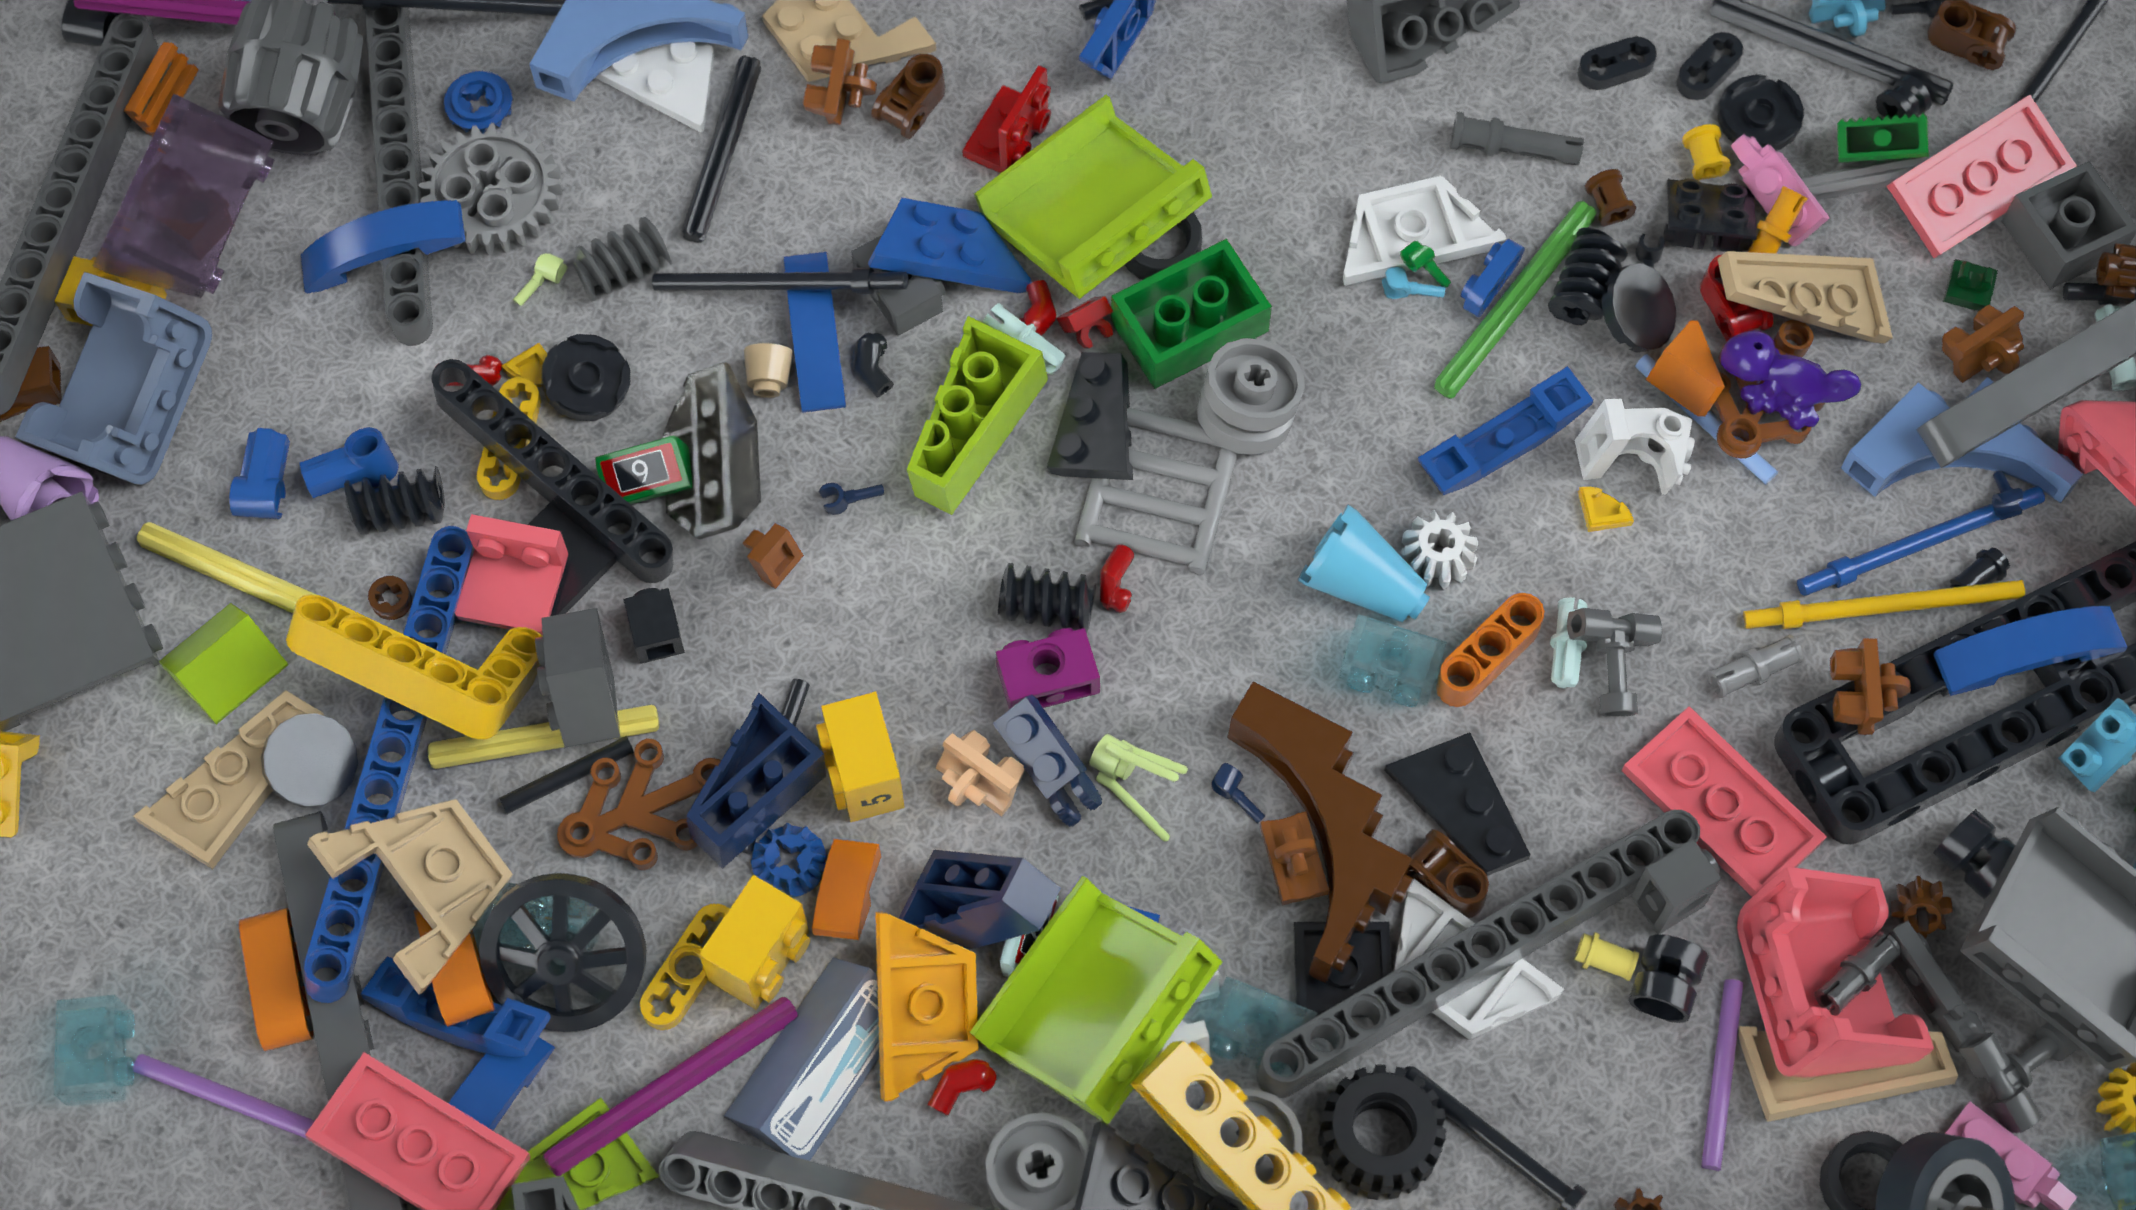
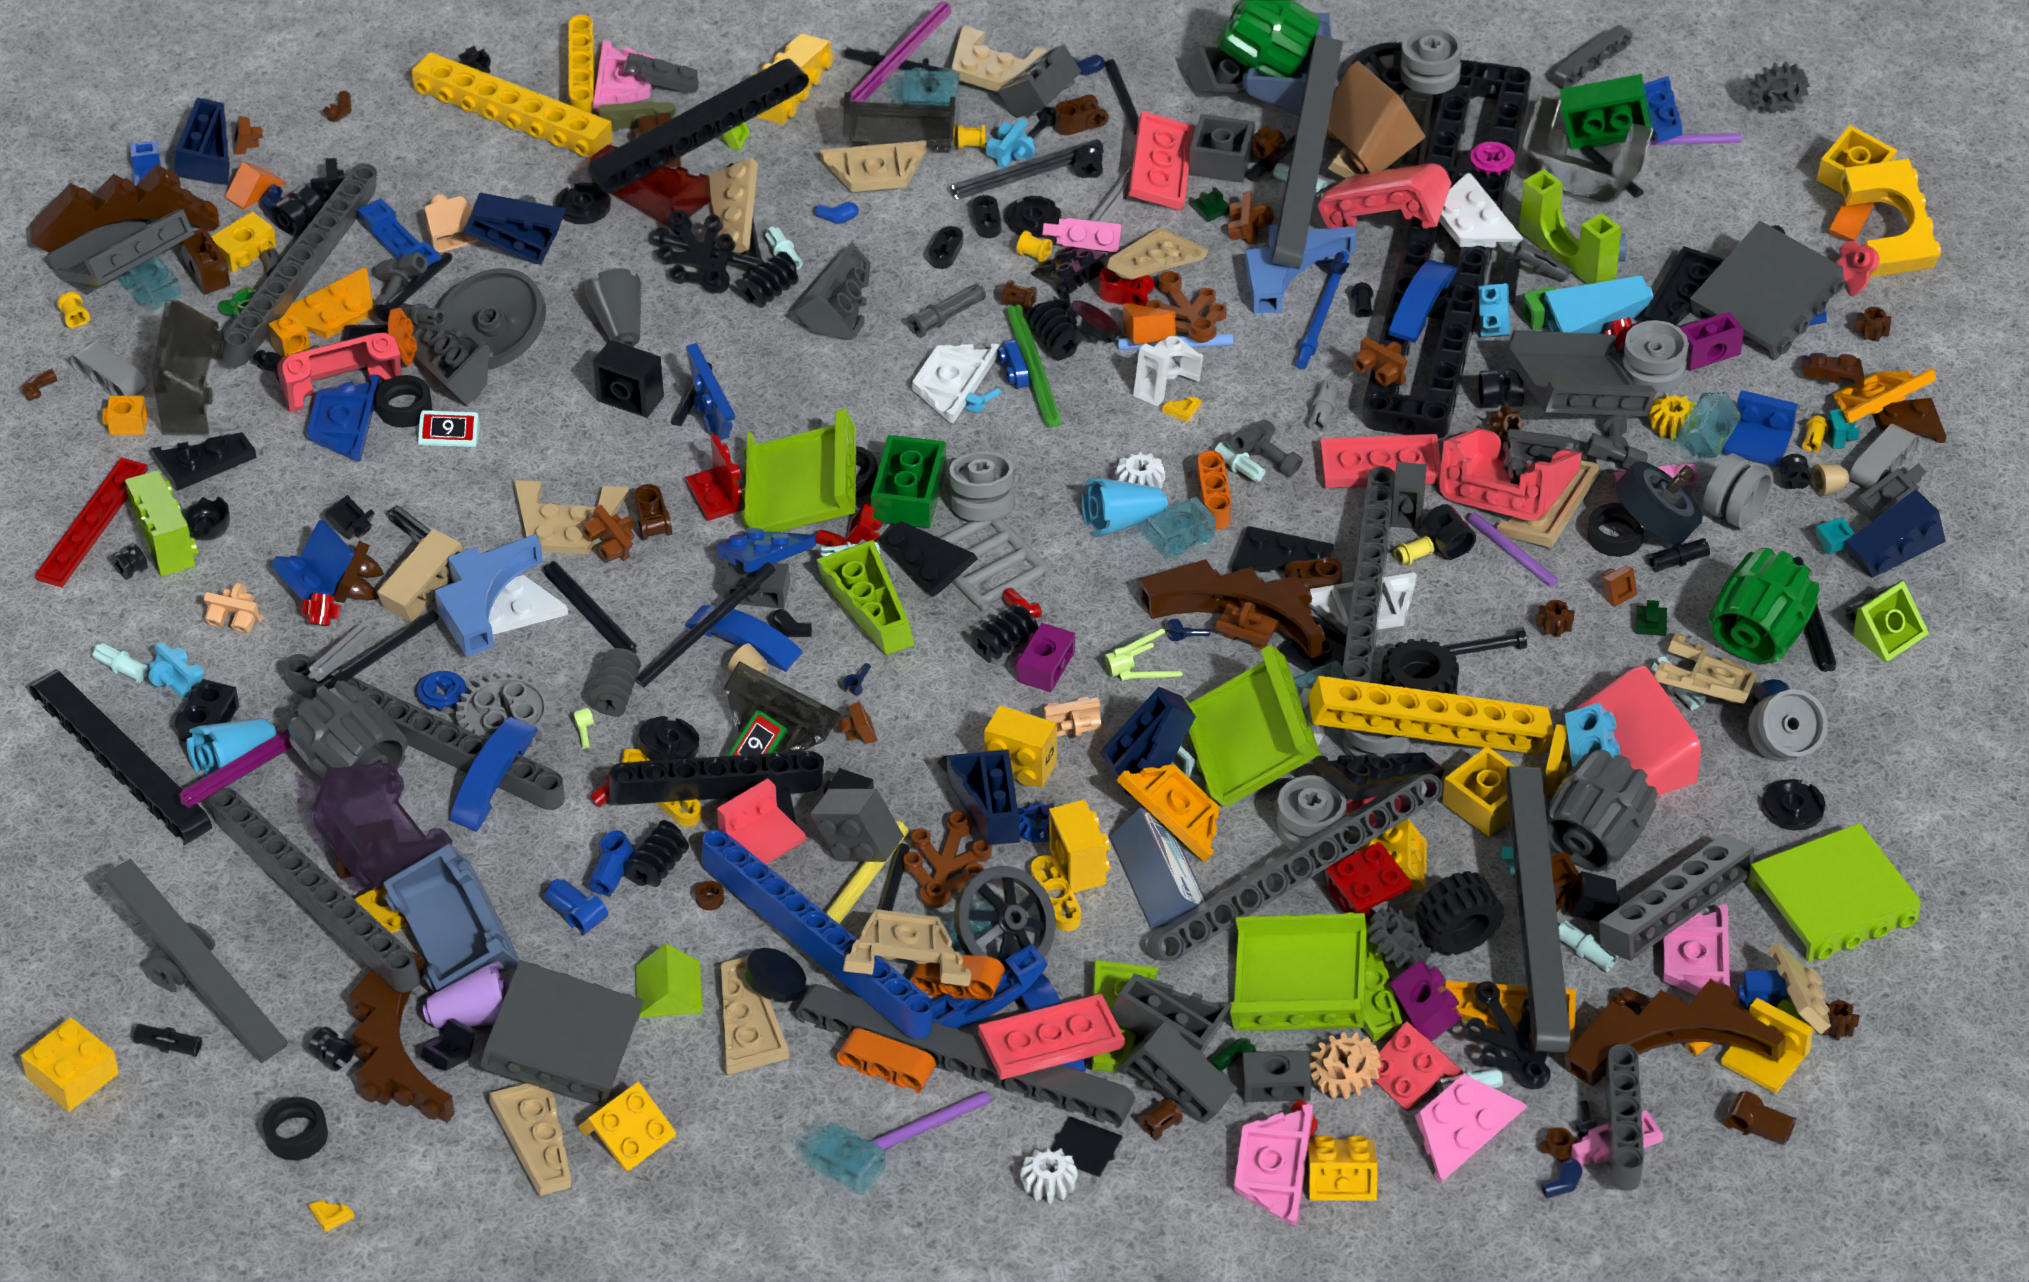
camera: 50 degrees left, 20 degrees down
(174, 82) = (273, 813): orange tile -> none
(220, 566) = (630, 949): light yellow axle -> none
(414, 673) = (816, 867): yellow beam -> none
(669, 1086) = (1117, 928): magenta axle -> none
(845, 888) = (1073, 791): orange slope -> none
(961, 1078) = (1227, 824): red arm -> none
(1047, 758) = (1092, 683): hinge -> none
(1418, 256) = (977, 380): green hand -> none
(1509, 435) = (1105, 410): blue slope -> none
(1778, 222) = (1105, 239): light orange pin -> none
(1790, 382) = (1195, 290): dark purple animal -> none
(1793, 614) = (1313, 374): yellow bar -> none
(1883, 138) = (1103, 176): green brick -> none

